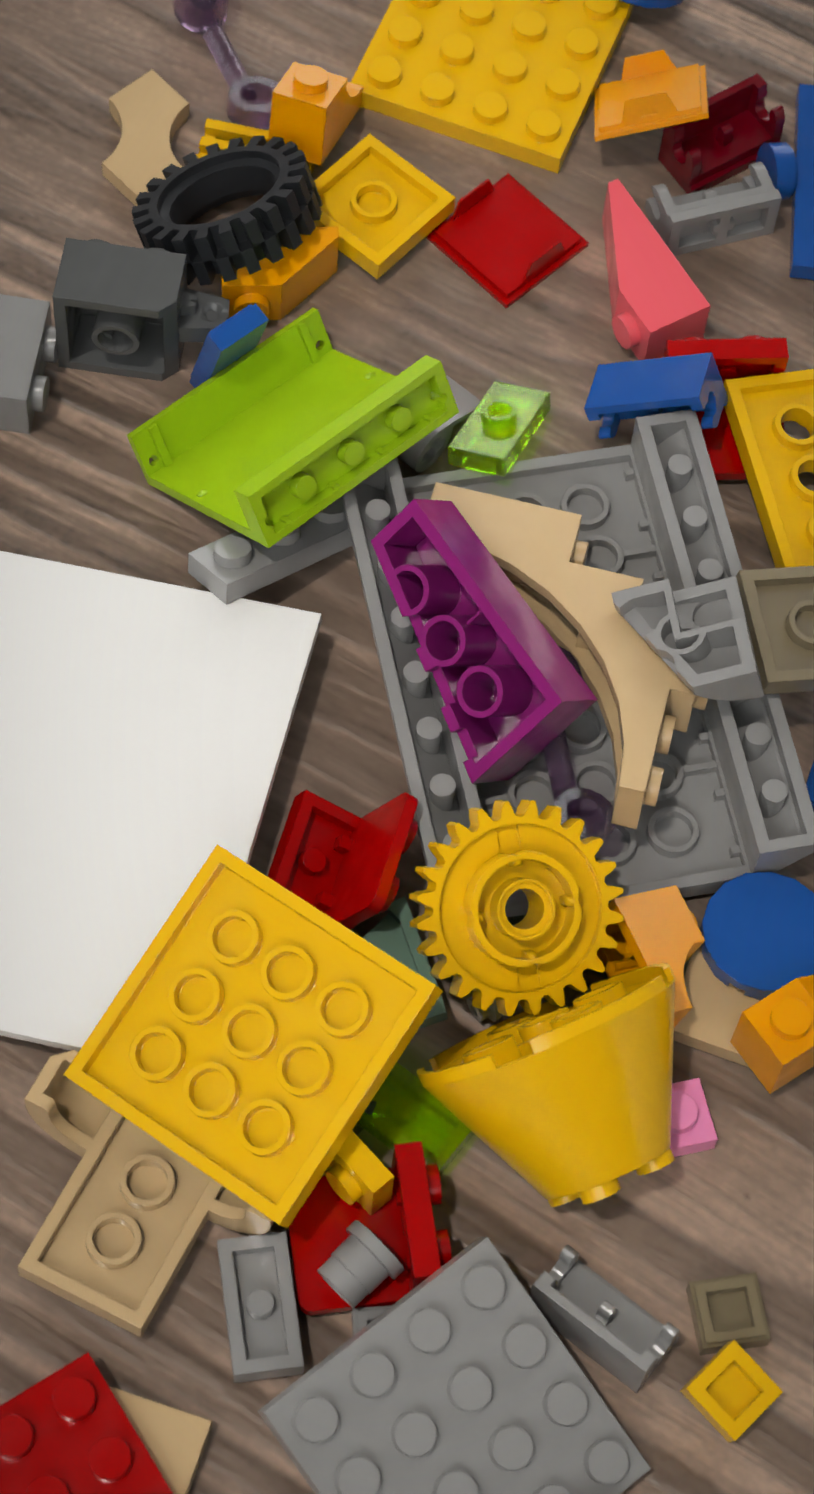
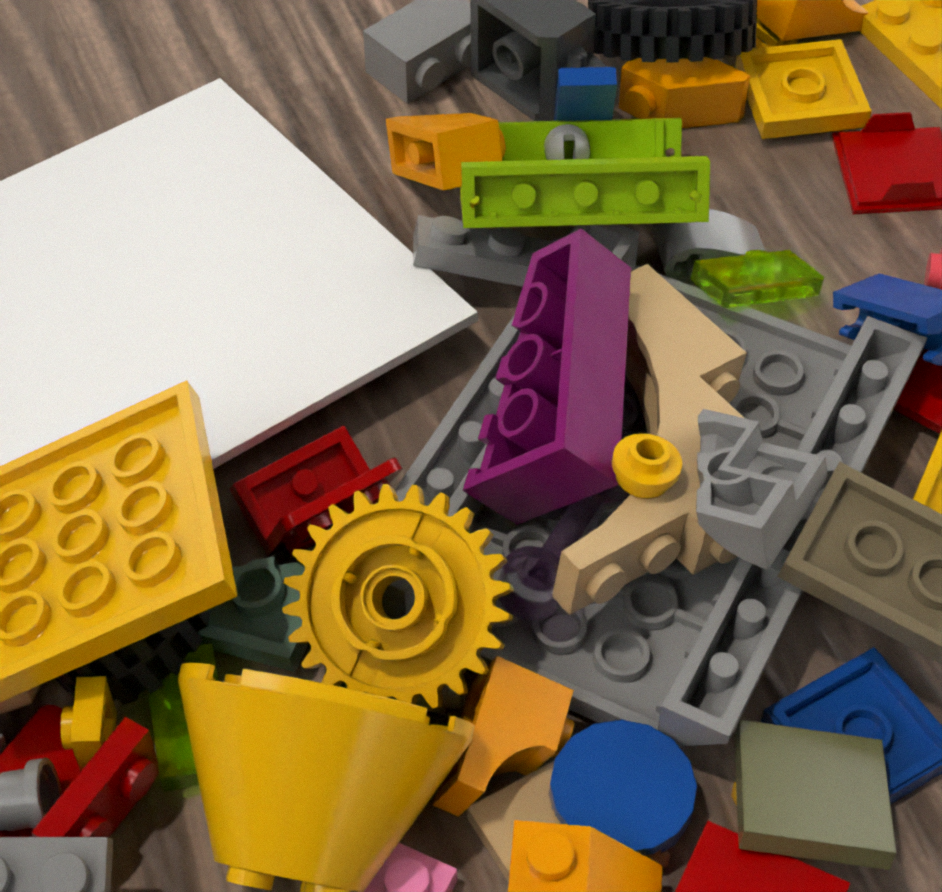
camera: 45 degrees right, 10 degrees down
(142, 470) = (434, 146): none -> light orange slope
(234, 407) = (555, 142): none -> light grey hinge
(611, 683) = (646, 465): none -> yellow plate

